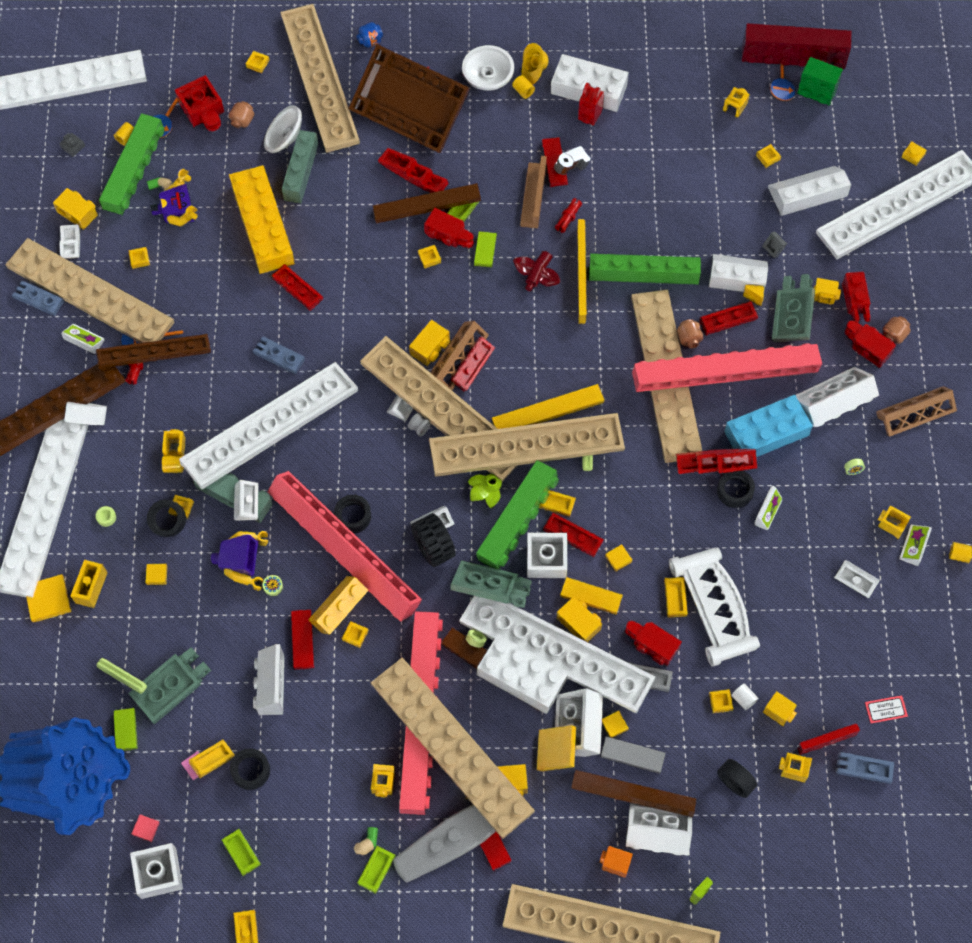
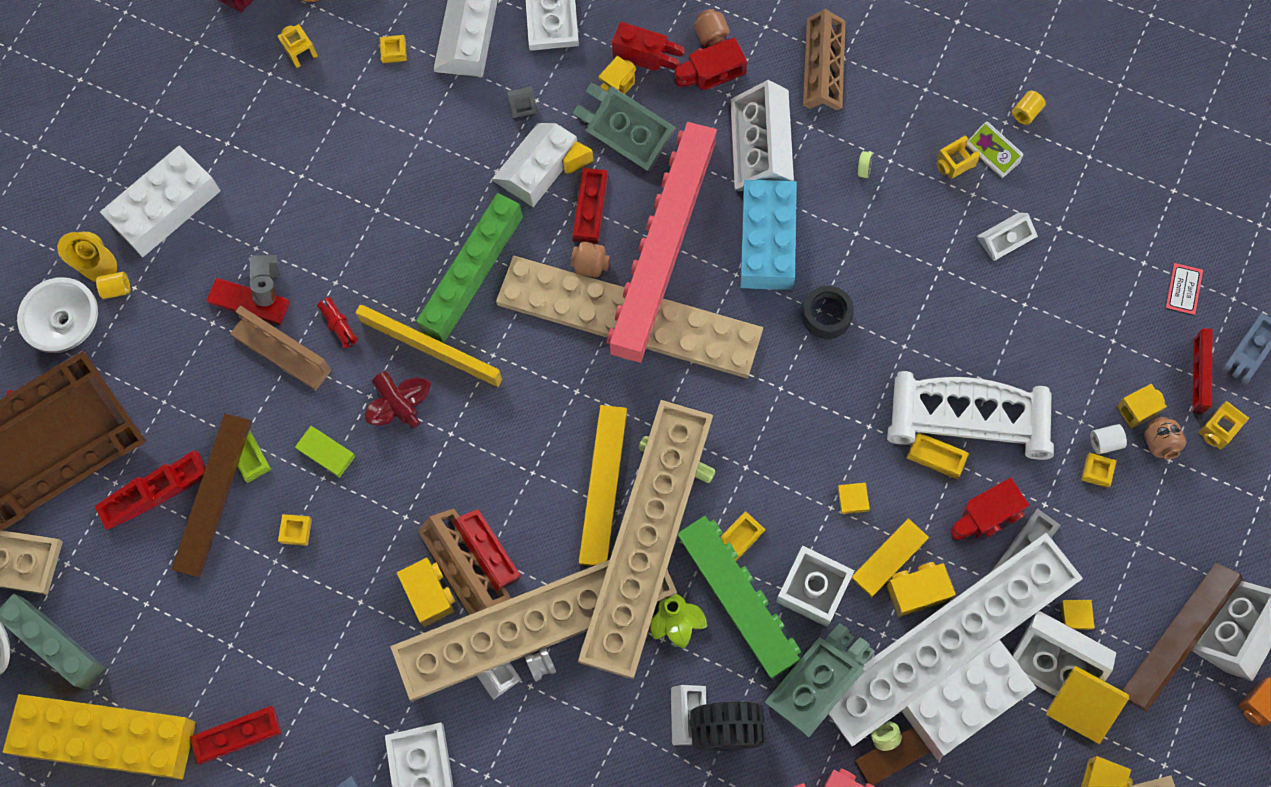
camera: 60 degrees left, 5 degrees up
(448, 229) = (269, 485): red hinge -> none
(576, 535) = (789, 541): red tile -> none
(590, 104) = (197, 214): red hinge -> none
(633, 755) = (1127, 611): light grey tile -> none
(716, 460) = (787, 309): red slope -> none
(737, 778) = (1217, 500): black tyre -> none
(765, 732) = (1164, 438): none -> nougat head
(768, 509) = (871, 289): slope -> none

